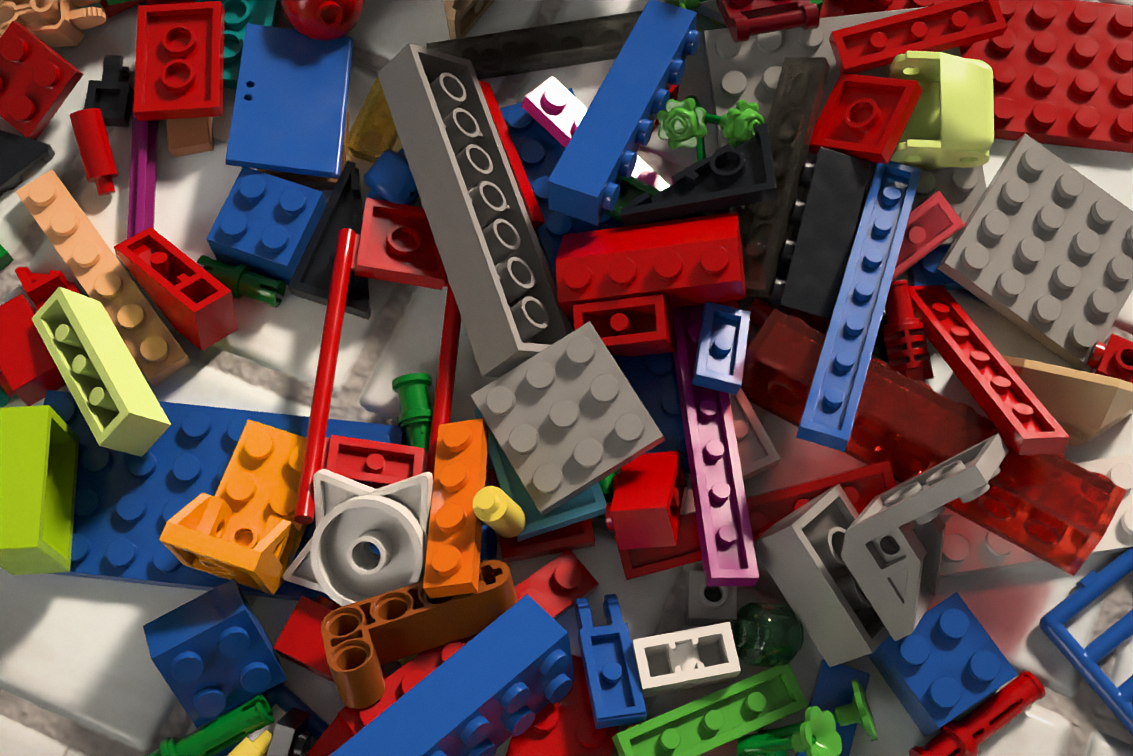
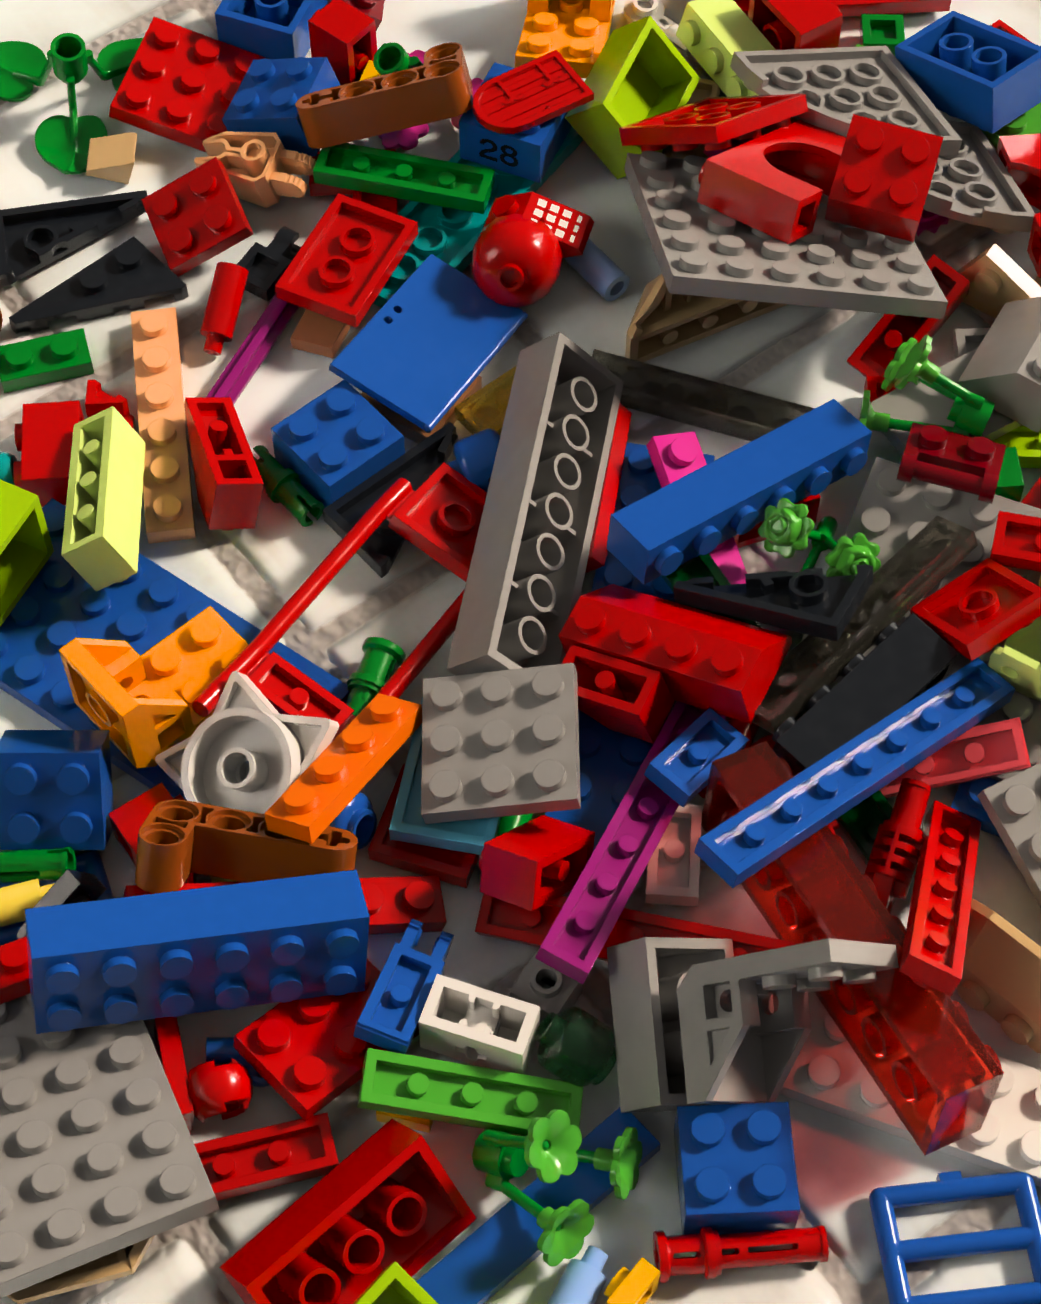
camera: 30 degrees right, 10 degrees down
(499, 511) = (379, 789): light yellow cylinder -> none

